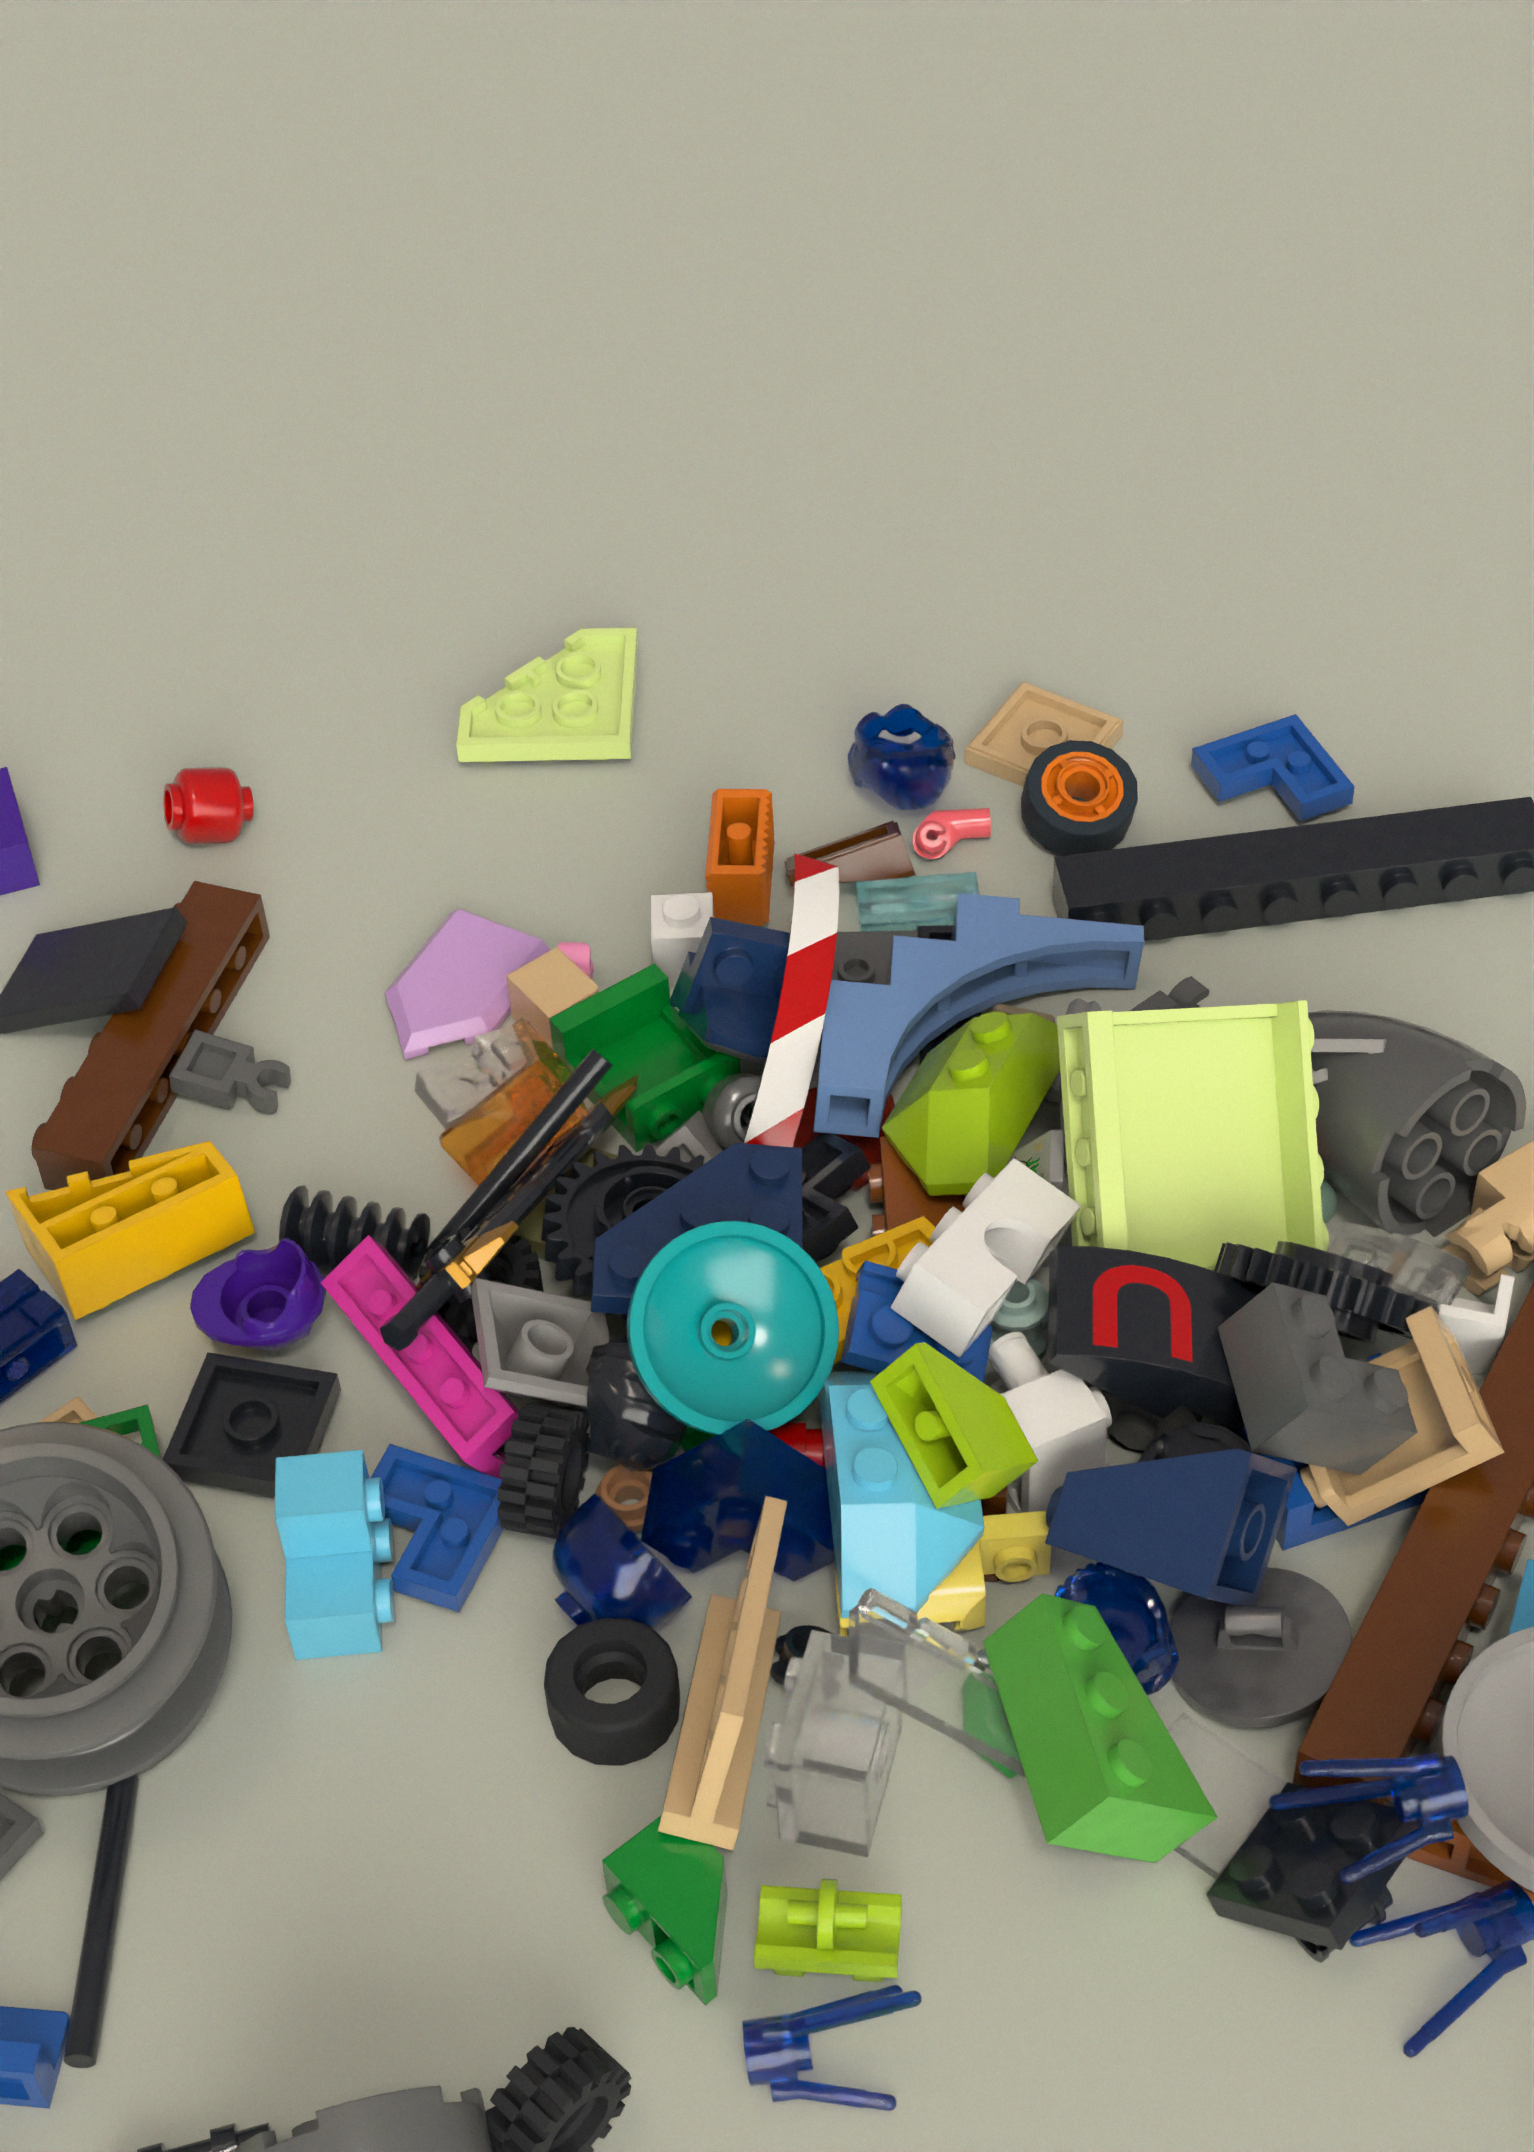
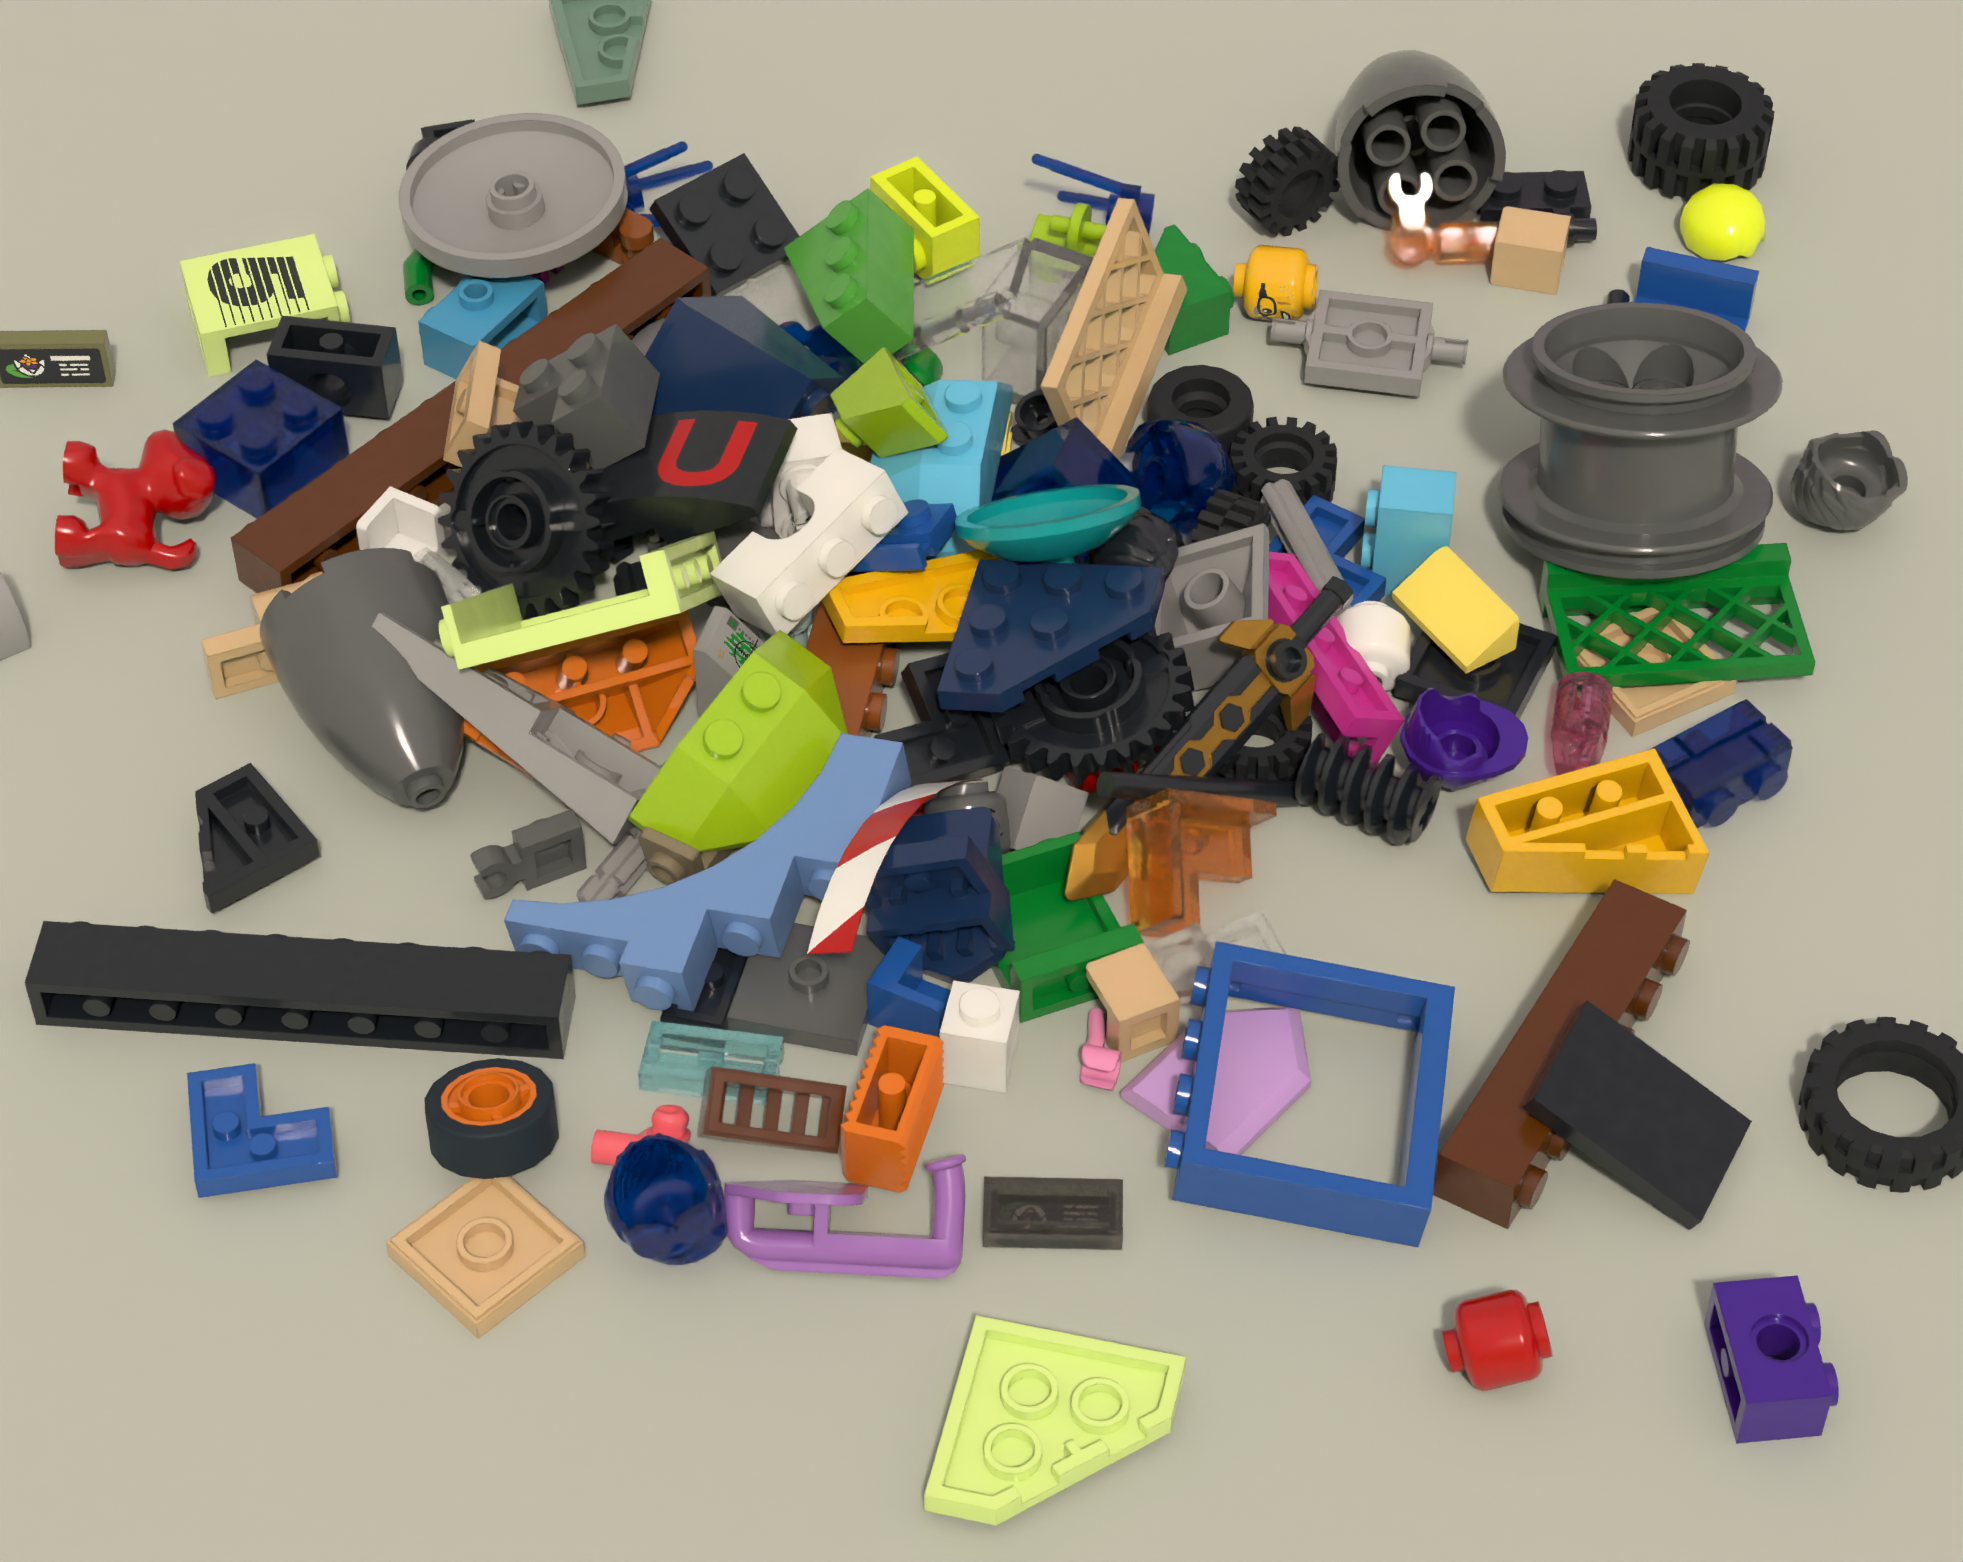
camera: 170 degrees left, 0 degrees up
(140, 1360) = (1581, 724): none -> clear pink hinge
(195, 2081) = (1530, 250): none -> tan panel
(221, 1069) = (1491, 1004): dark grey plate -> none
(260, 1428) = (1458, 611): none -> light yellow slope
(314, 2081) = (1453, 241): none -> clear orange bar
(366, 1403) = (1380, 638): none -> white head
(385, 1018) = (1296, 1192): none -> blue window
(414, 1878) = (1369, 342): none -> light grey plate
(453, 1493) = (1300, 534): none -> light grey axle
(484, 1612) = (1288, 448): none -> black tyre
(548, 1934) = (1276, 283): none -> yellow head
(589, 850) = (1053, 1213): none -> clear smoke tile
(791, 762) = (846, 1250): none -> medium lavender piece
(1049, 1919) = (942, 222): none -> neon yellow brick
(1422, 1790) = (647, 179): clear blue plant -> none
(1438, 994) = (247, 837): none -> black wing

